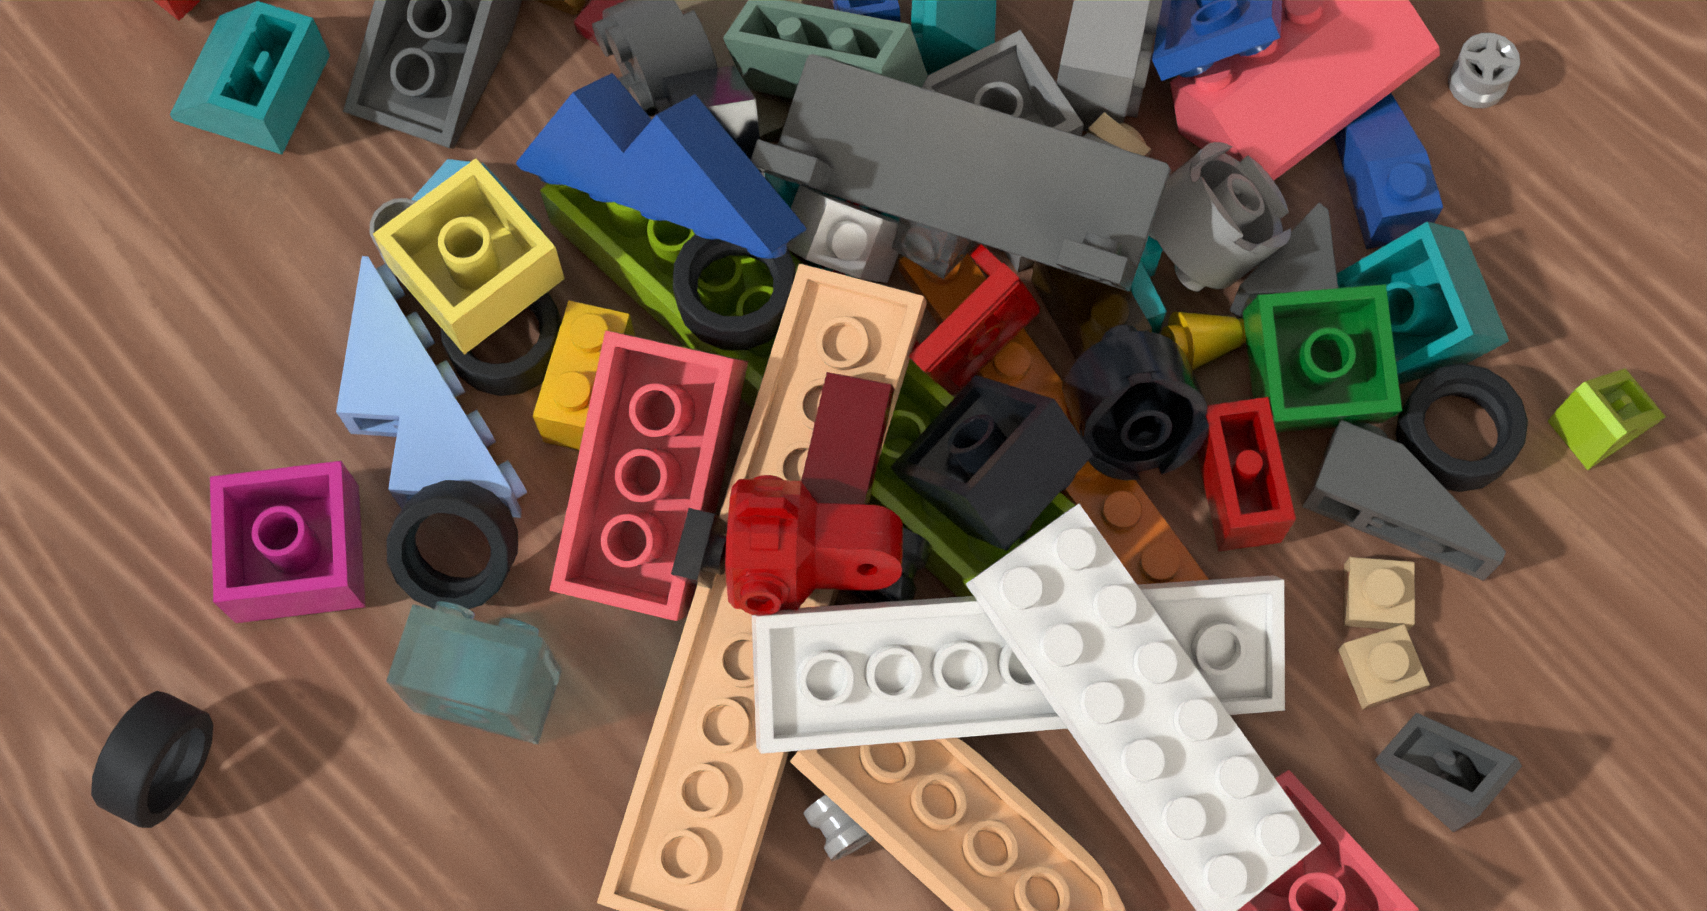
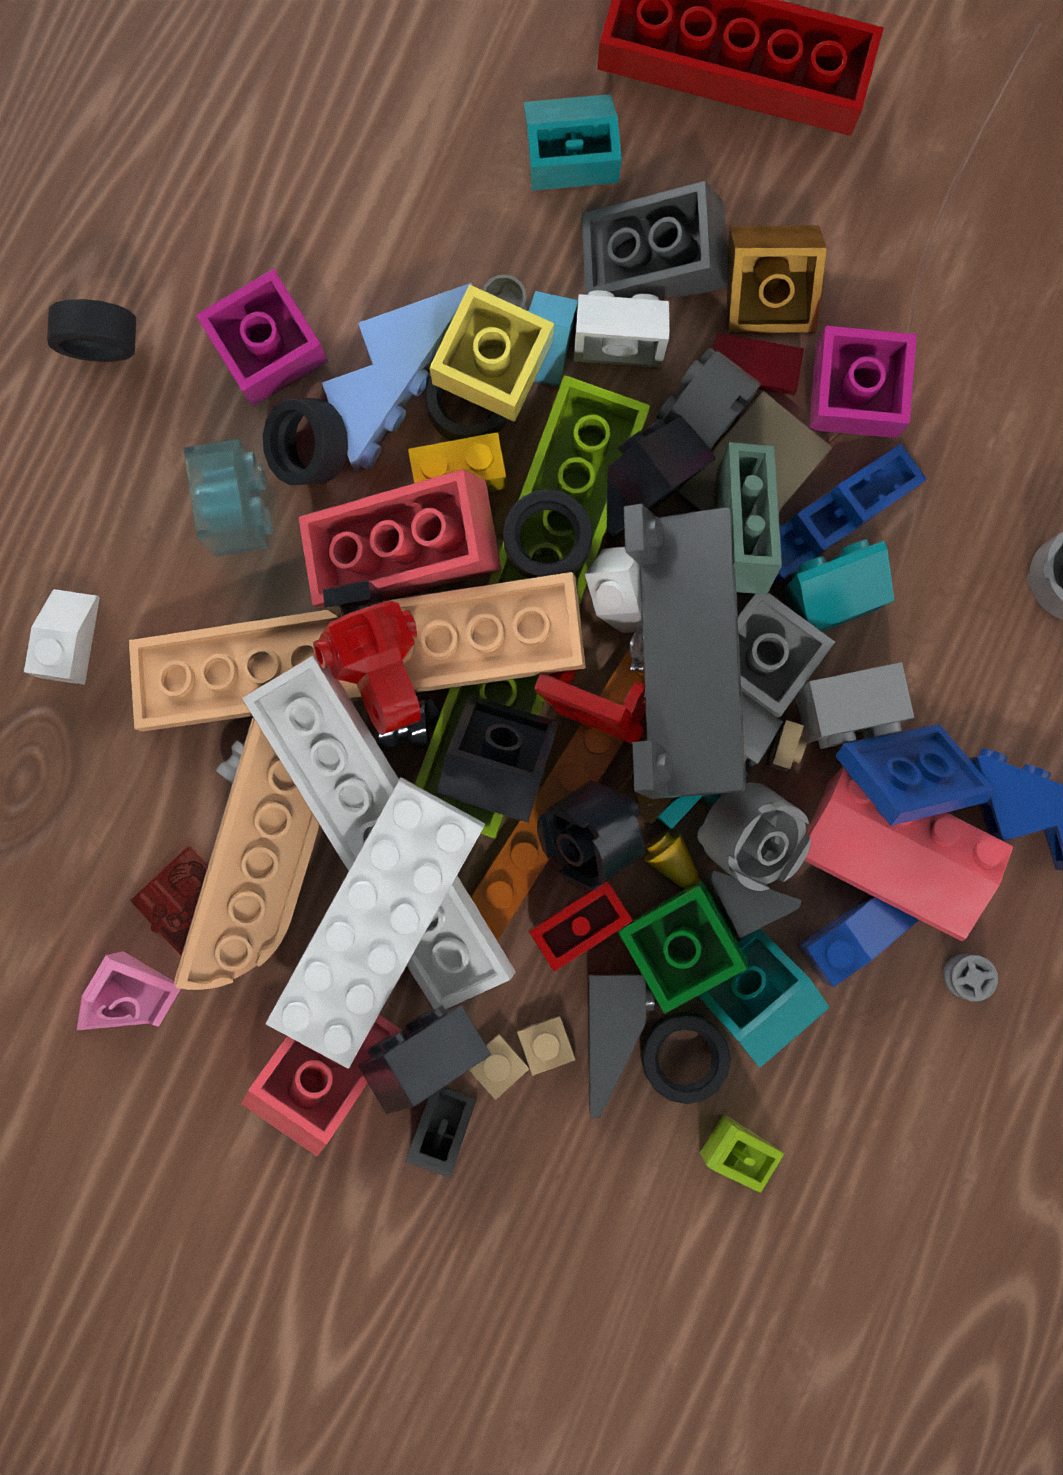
camera: 65 degrees right, 15 degrees up
(512, 110) = (621, 329): none -> white slope
(665, 167) = (595, 454): blue slope -> none
(847, 439) = (460, 660): dark red tile -> none
(1347, 735) = (418, 1064): none -> black brick

